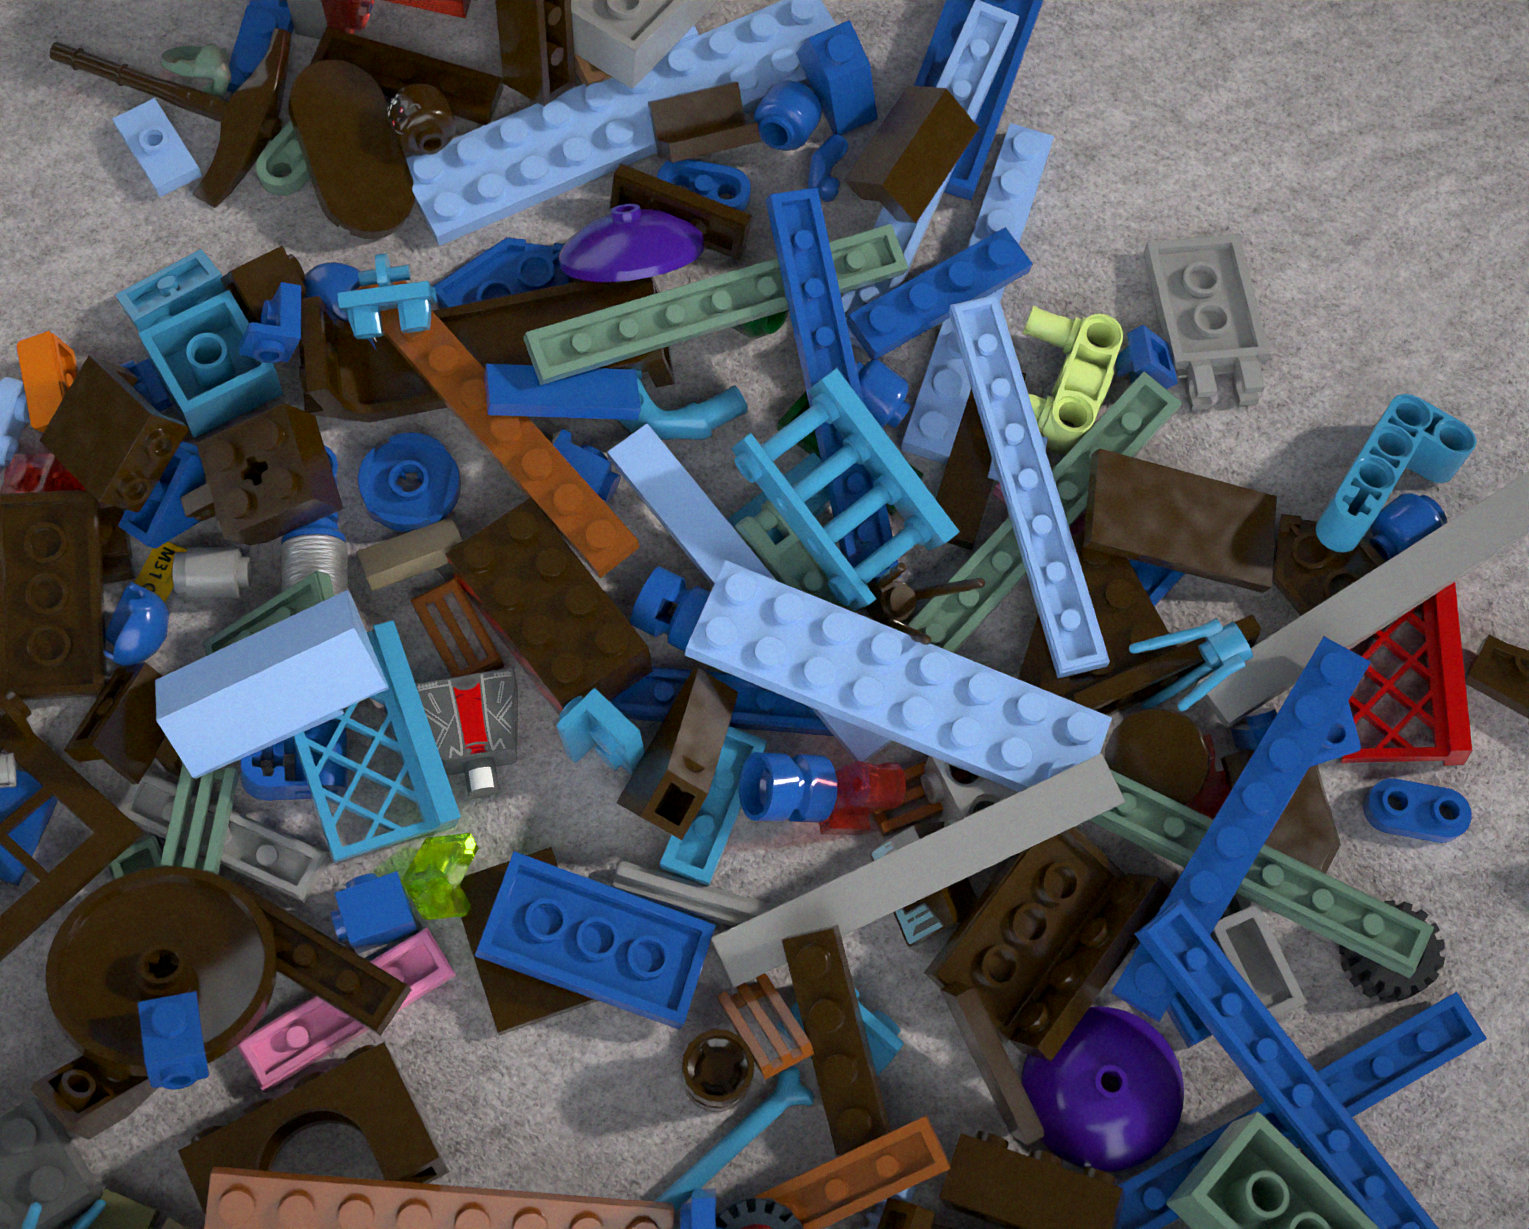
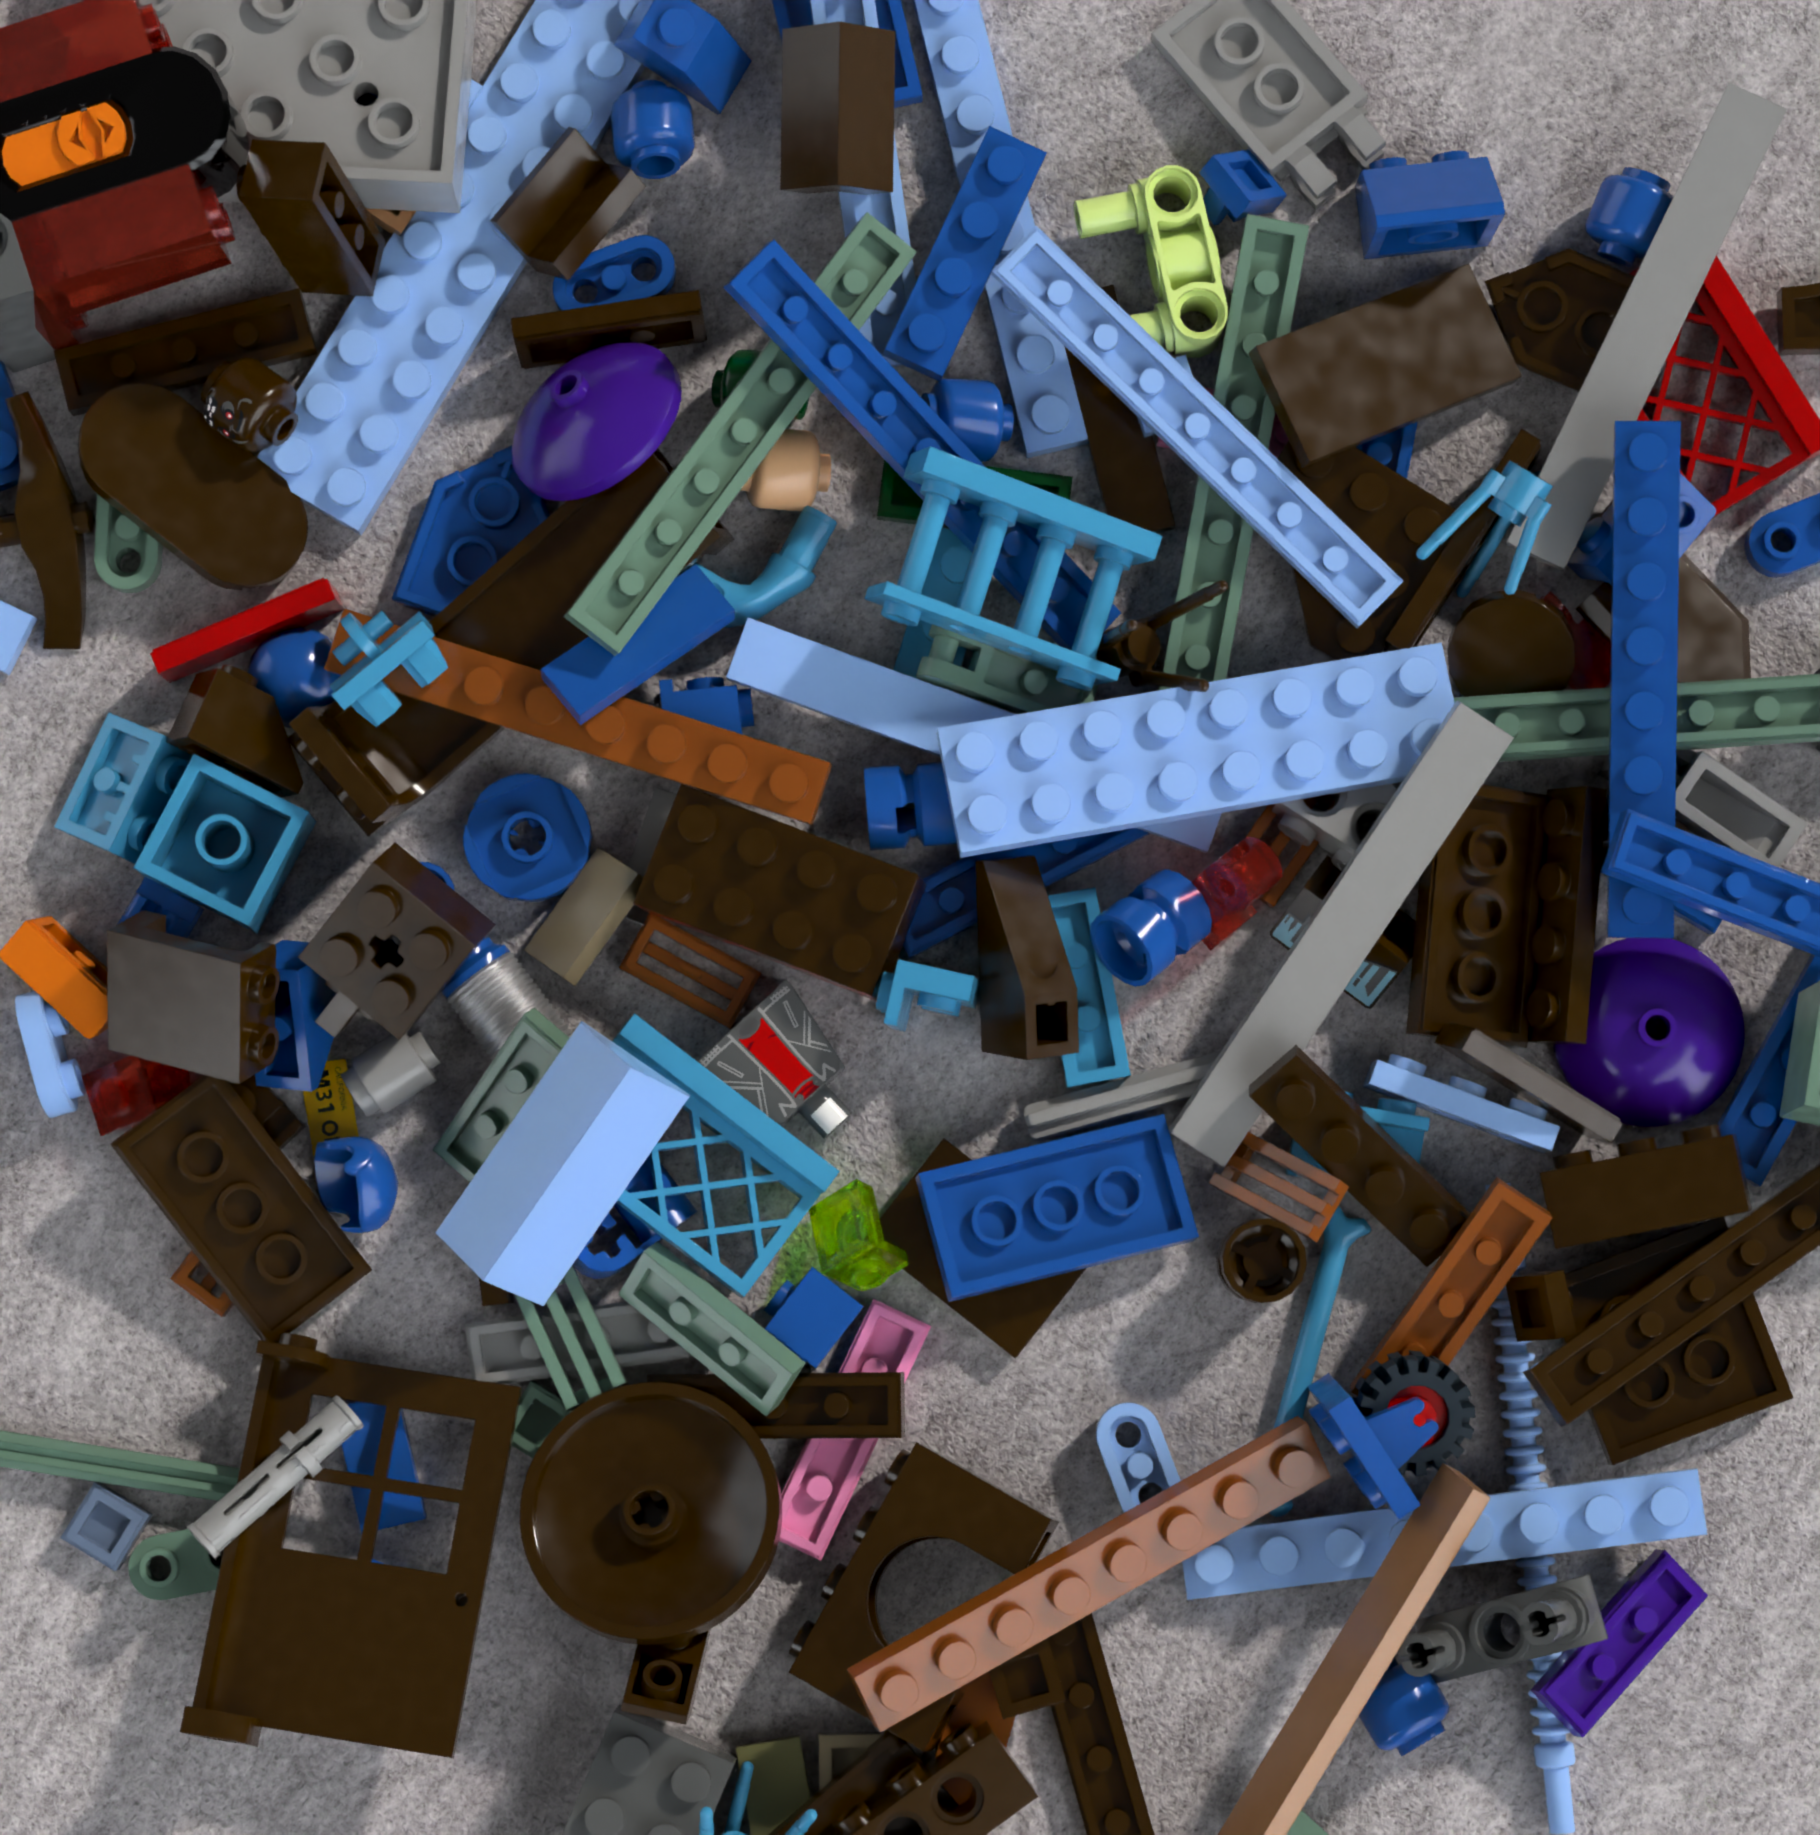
camera: 25 degrees left, 15 degrees up
(122, 724) = (418, 1288): dark brown panel -> none
(173, 1041) = (722, 1576): blue bracket -> none
(279, 327) = (287, 759): blue bracket -> none
(298, 870) = (711, 1328): none -> sand green plate
(318, 247) = (245, 630): none -> red tile
(536, 1168) = (1135, 1465): none -> light blue plate
(734, 357) = (790, 473): none -> light nougat head
(821, 166) = (728, 165): blue arm -> none
(935, 1052) = (1462, 1102): none -> light blue plate
(1268, 445) = (1427, 205): none -> blue slope
(1406, 436) = (1570, 174): dark azure beam -> none

